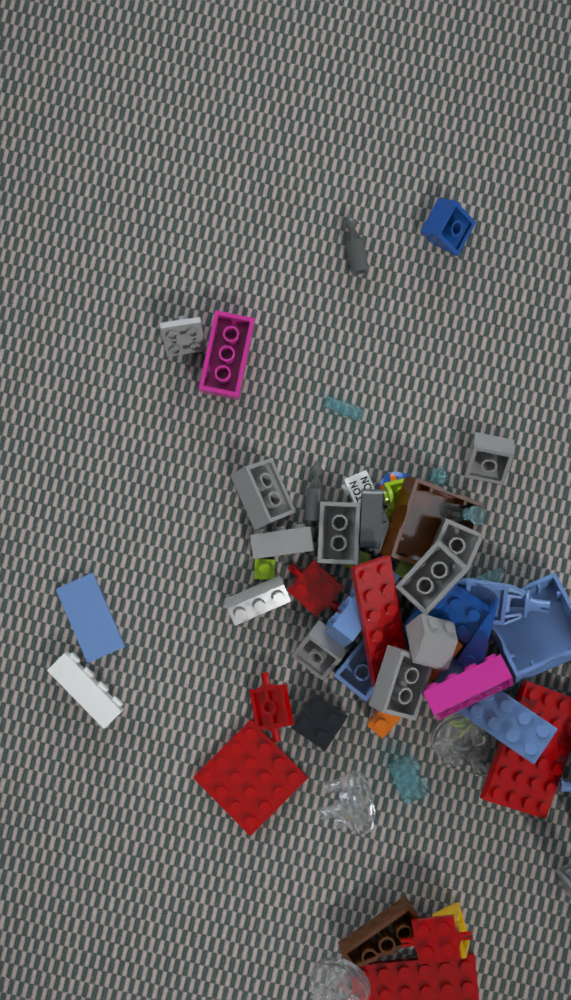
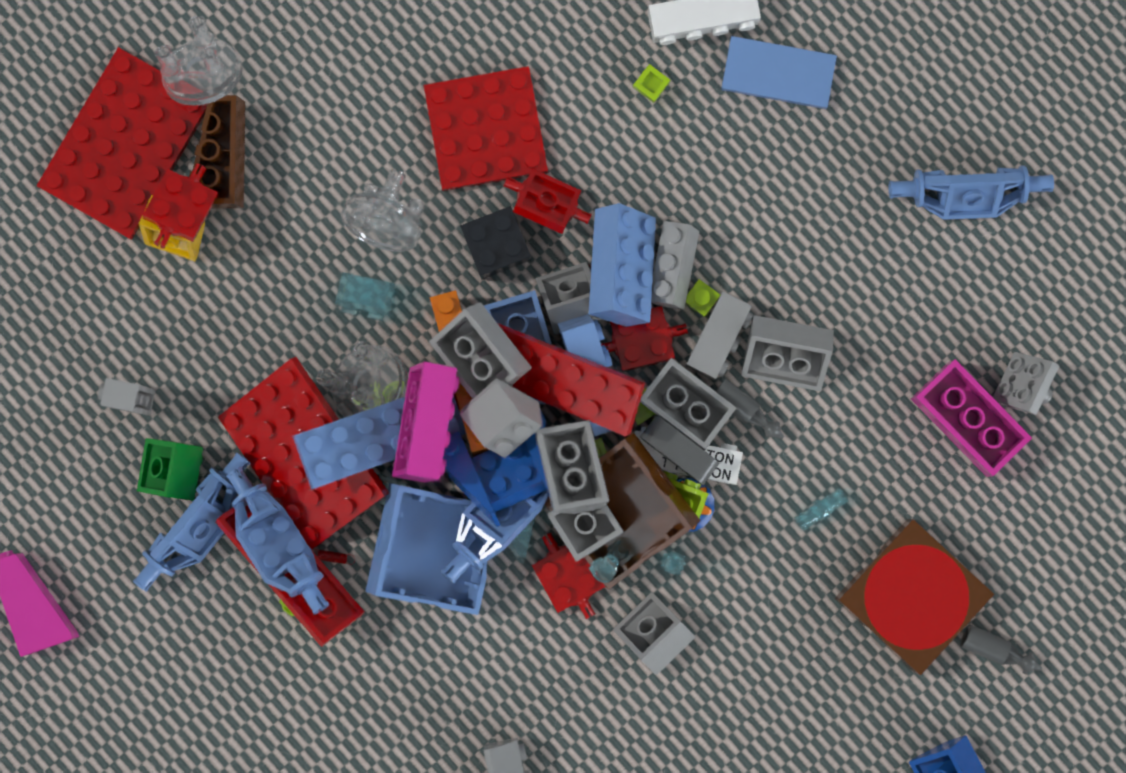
camera: 125 degrees right, 0 degrees up
(88, 447) = (971, 194): none -> medium blue plate
(151, 692) = (651, 83): none -> lime plate
(280, 632) = (622, 265): none -> medium blue brick
(359, 317) = (914, 596): none -> red tile
(497, 534) = (566, 580): none -> red plate

